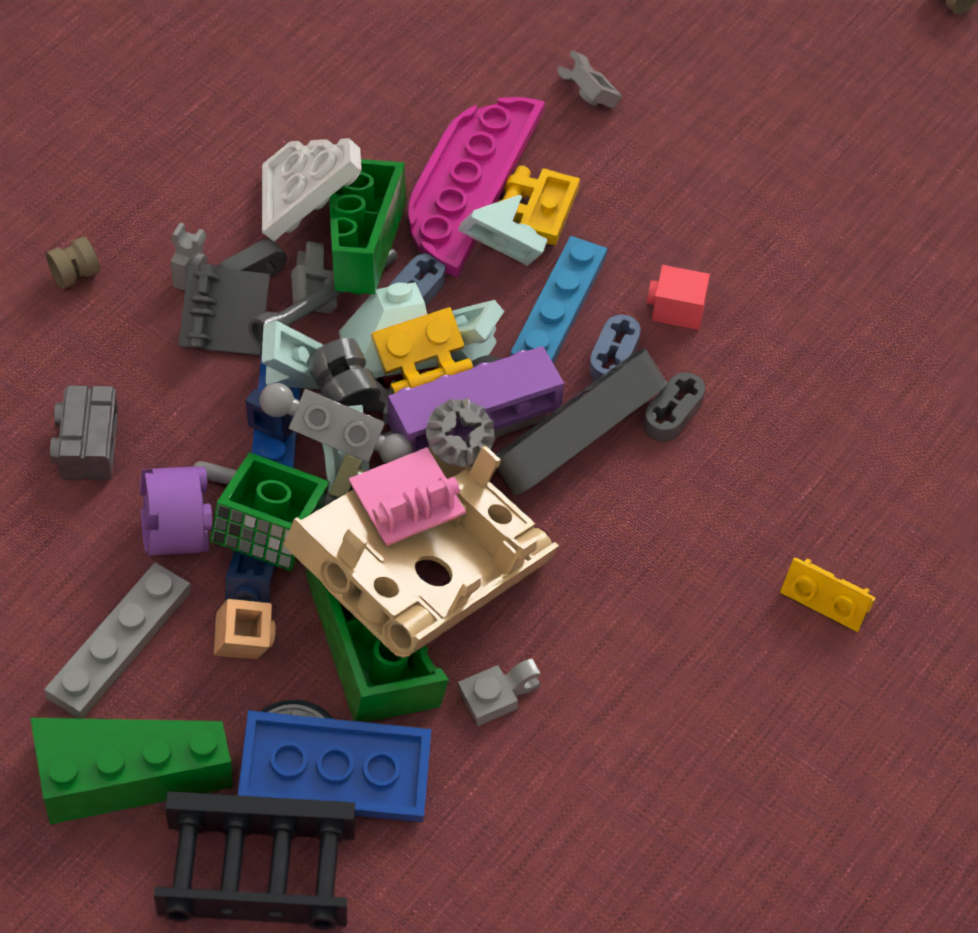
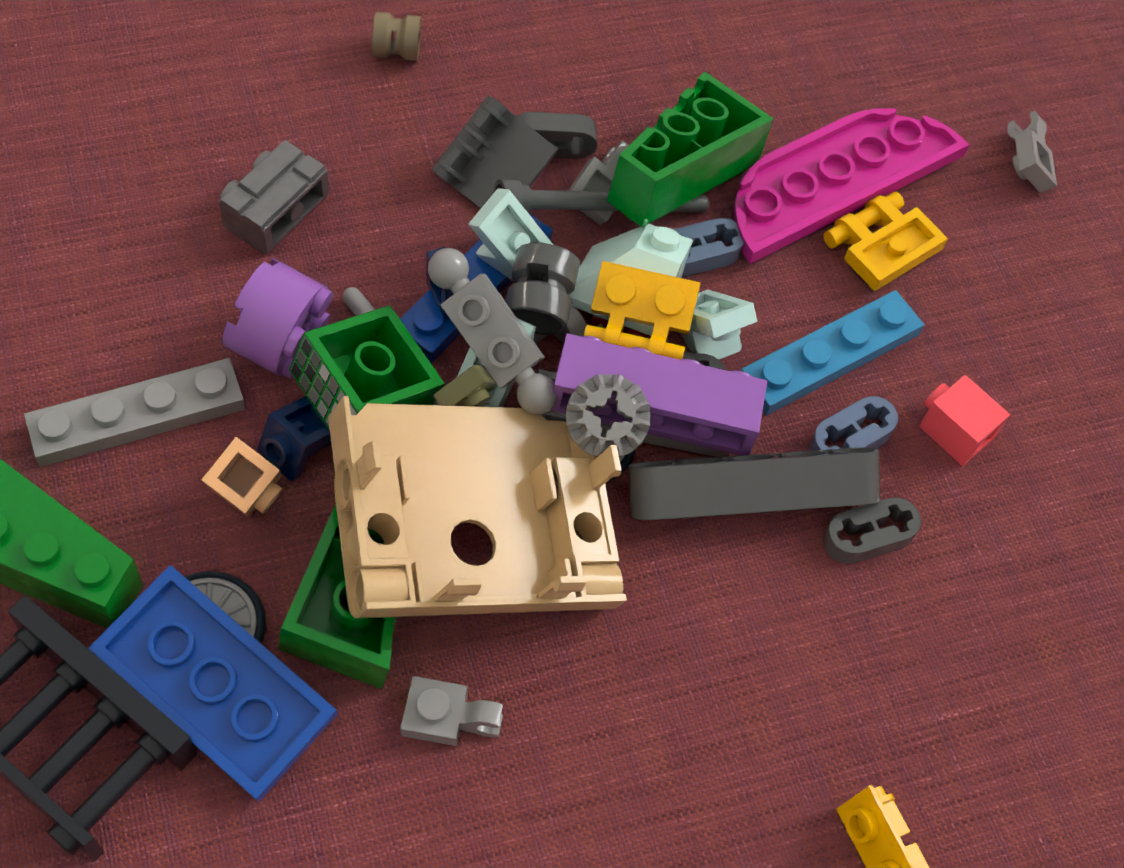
camera: 30 degrees right, 5 degrees up
(188, 252) = (503, 84): light grey plate -> none
(303, 180) = (658, 81): white plate -> none
(407, 496) = (501, 448): bright pink hinge -> none
(495, 228) = (817, 233): light aqua slope -> none

